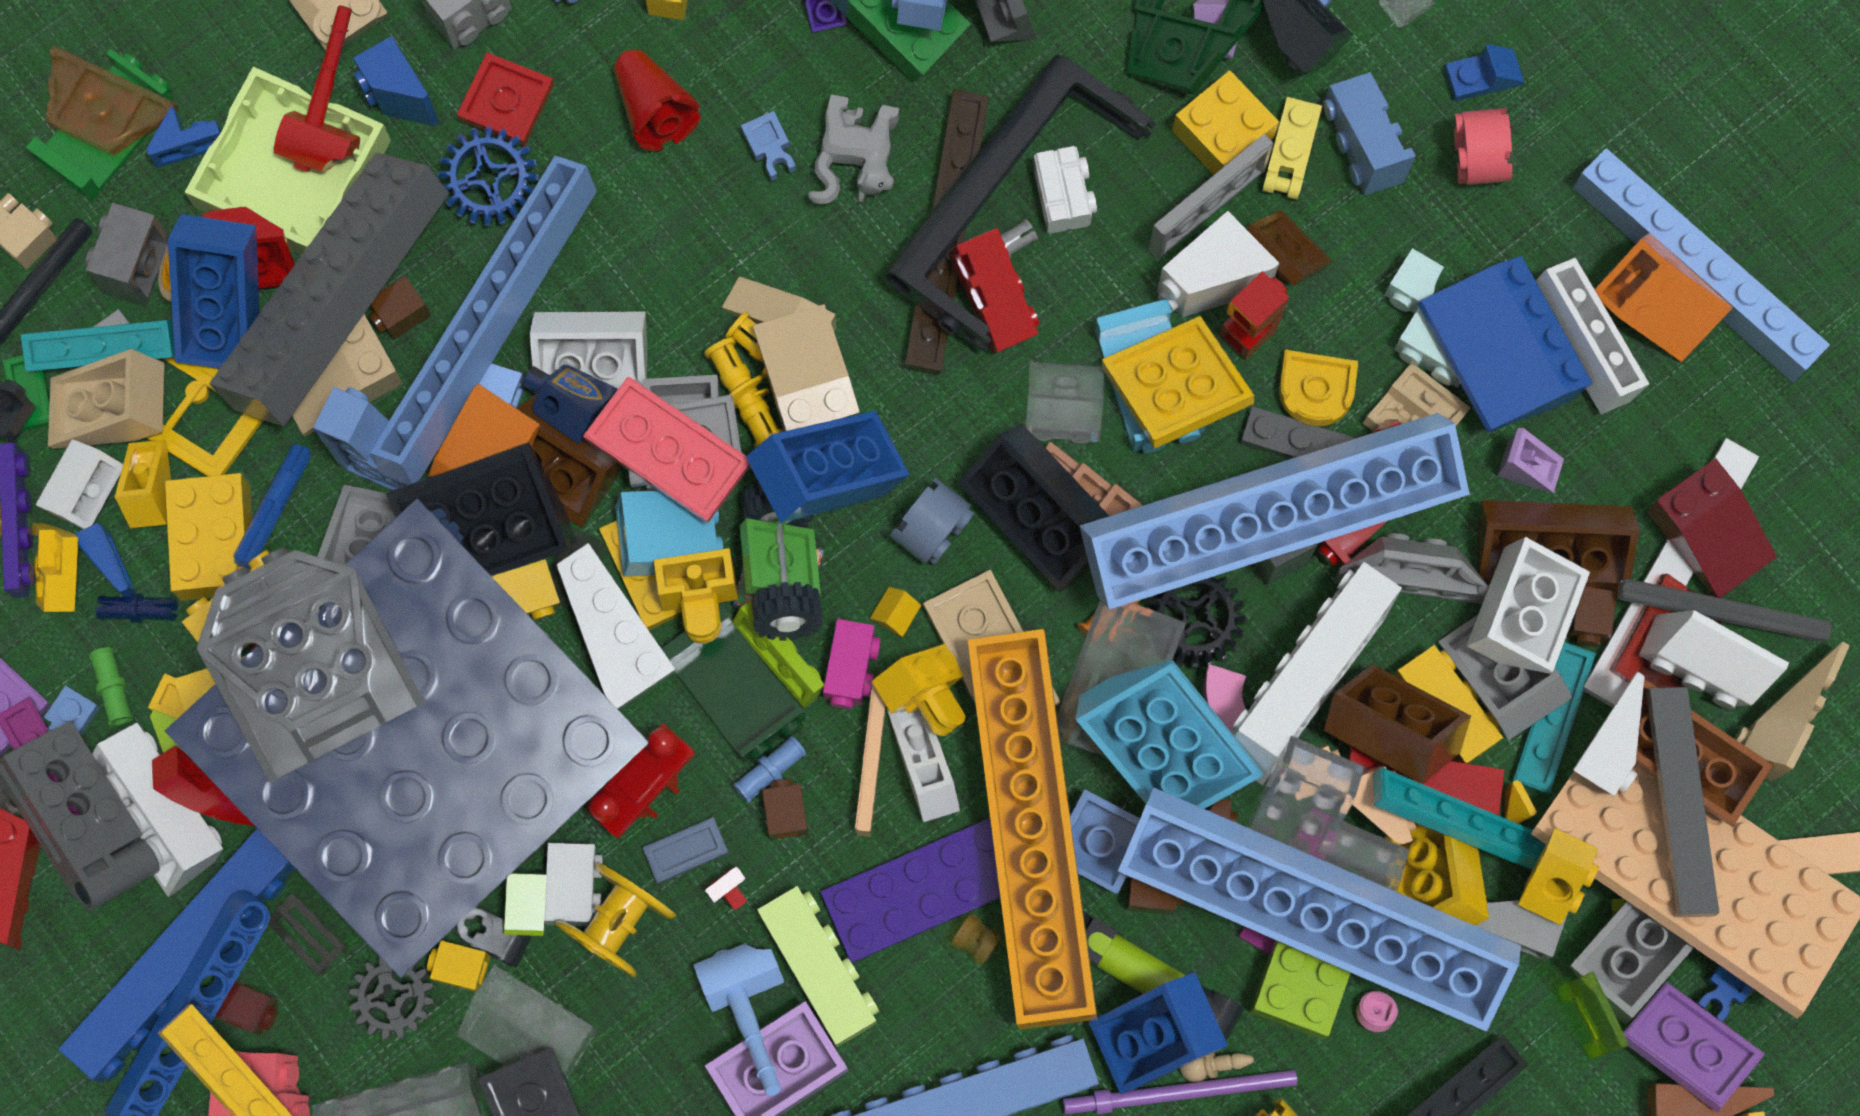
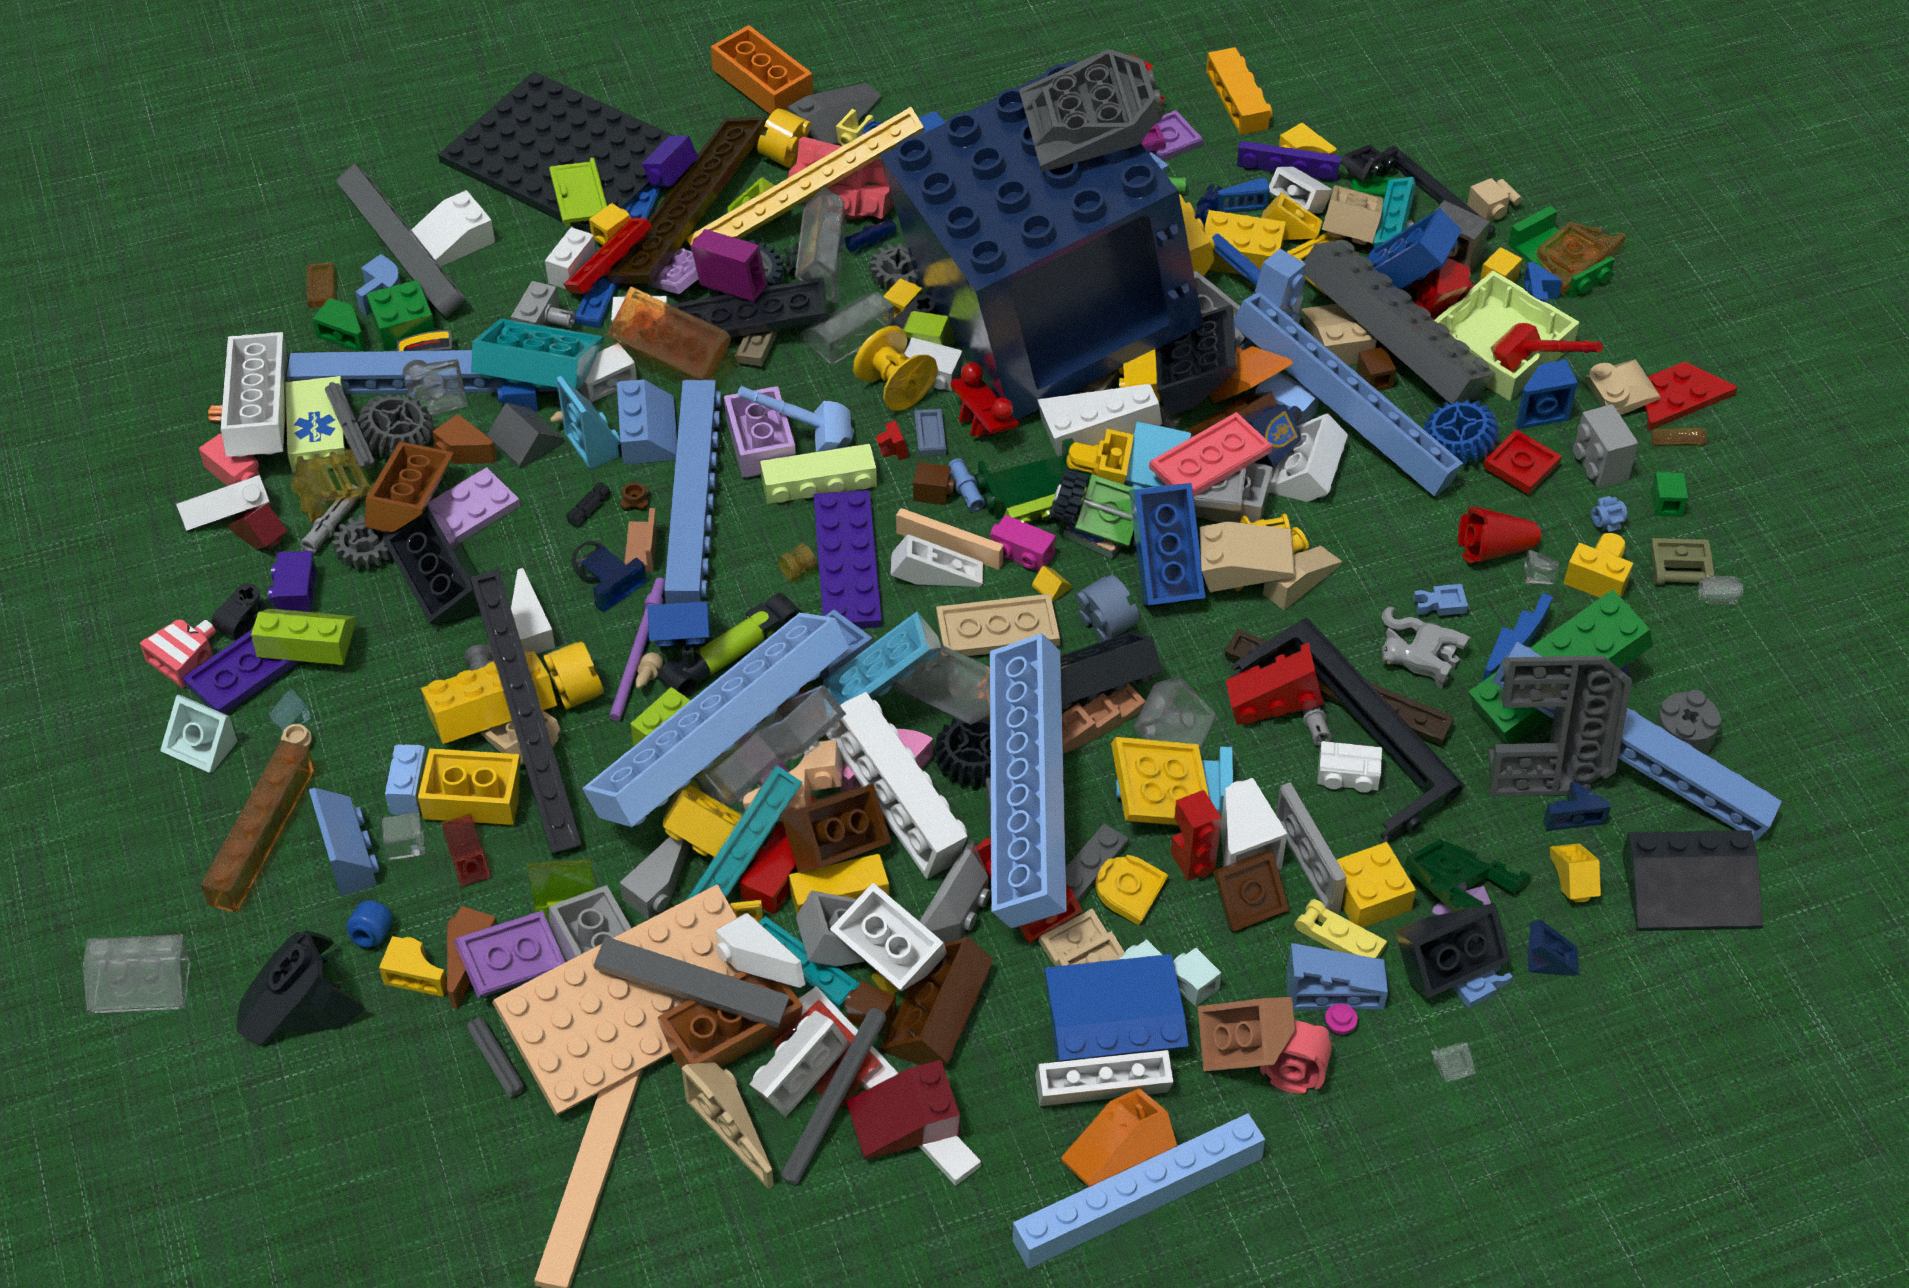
camera: 110 degrees right, 25 degrees down
(55, 568) = (1240, 168): yellow slope -> none
(161, 192) = (1503, 263): none -> yellow brick
(334, 1062) = (870, 235): none -> clear blue pin
(683, 48) = (1540, 569): none -> clear slope
(821, 51) = (1525, 632): none -> blue slope
(924, 684) = (987, 567): yellow brick -> none
(1032, 830) = (854, 588): light orange brick -> none
(1407, 118) = (1341, 1019): none -> dark pink plate
(1483, 74) = (1369, 1096): blue slope -> none
(1490, 196) = (1245, 1032): none -> nougat slope
(1530, 462) = (1014, 1006): lavender slope -> none
(1558, 877) = (673, 887): yellow brick -> none
(1802, 1028) = (495, 1057): none -> dark grey axle

